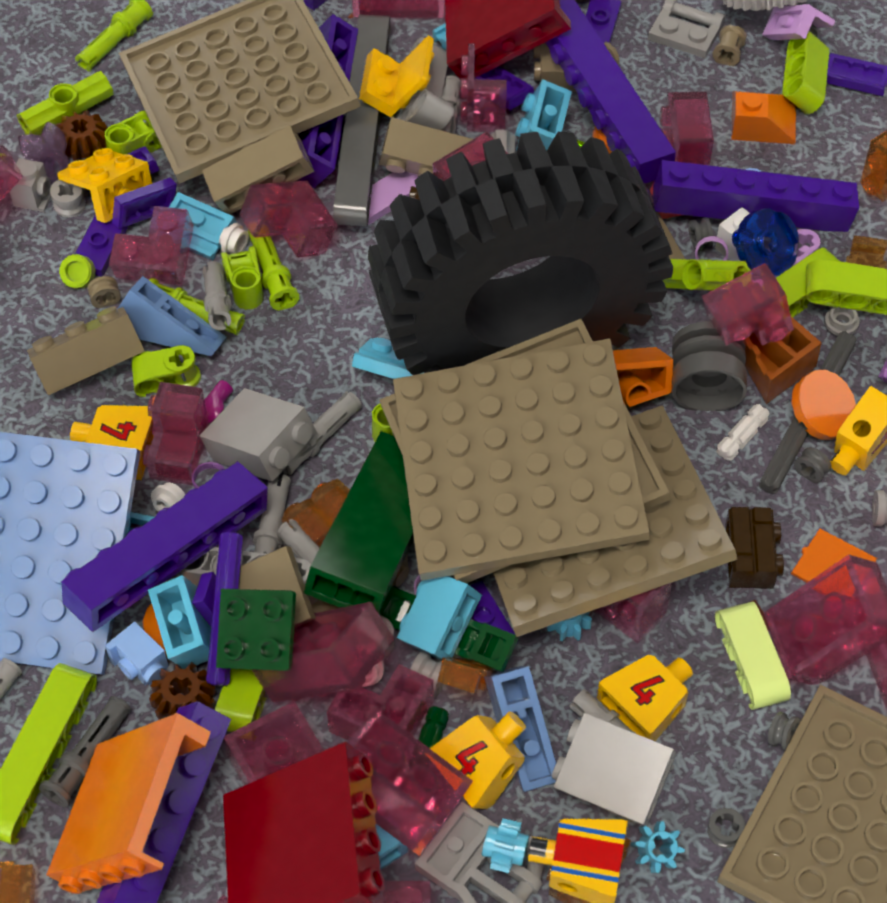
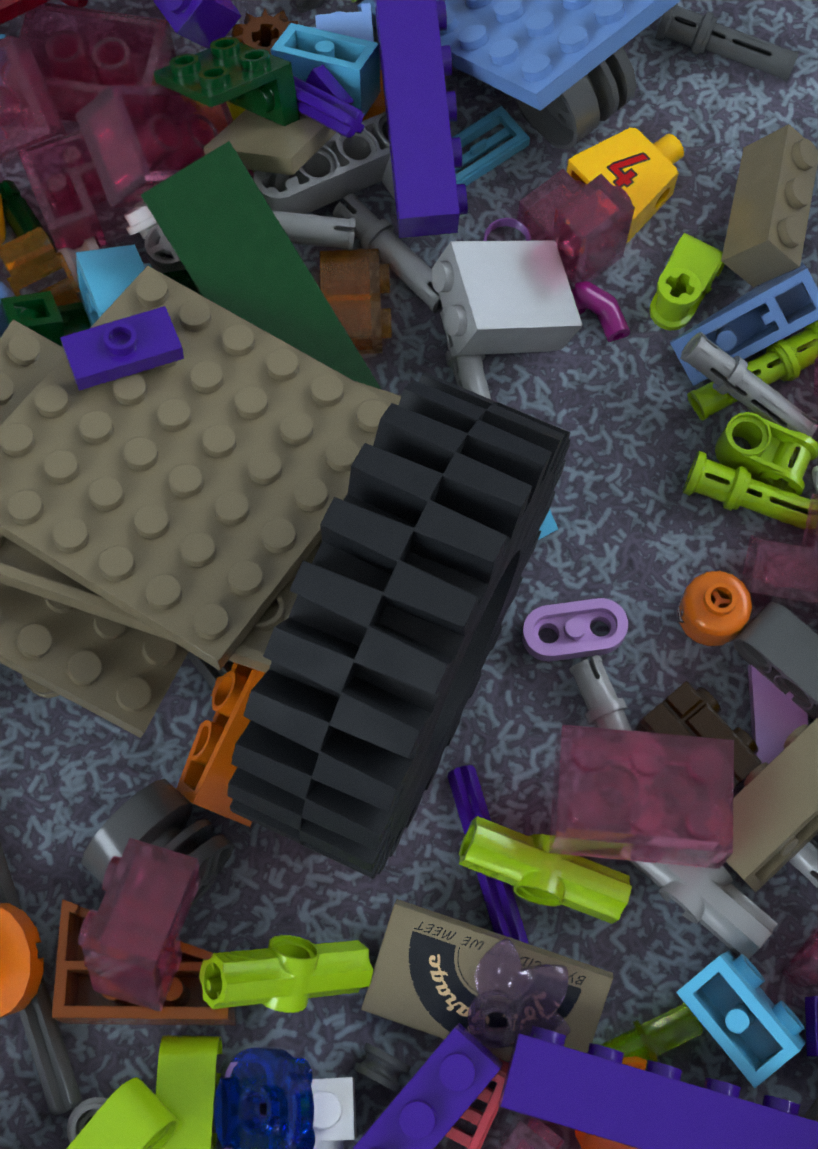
camera: 130 degrees right, 15 degrees up
(166, 495) = (507, 178): white plate -> none
(353, 240) = (714, 608): none -> orange head
(488, 518) = (122, 348): none -> dark purple plate
(714, 239) = (353, 1060): lavender axle -> none
(742, 432) = (61, 840): white axle -> none

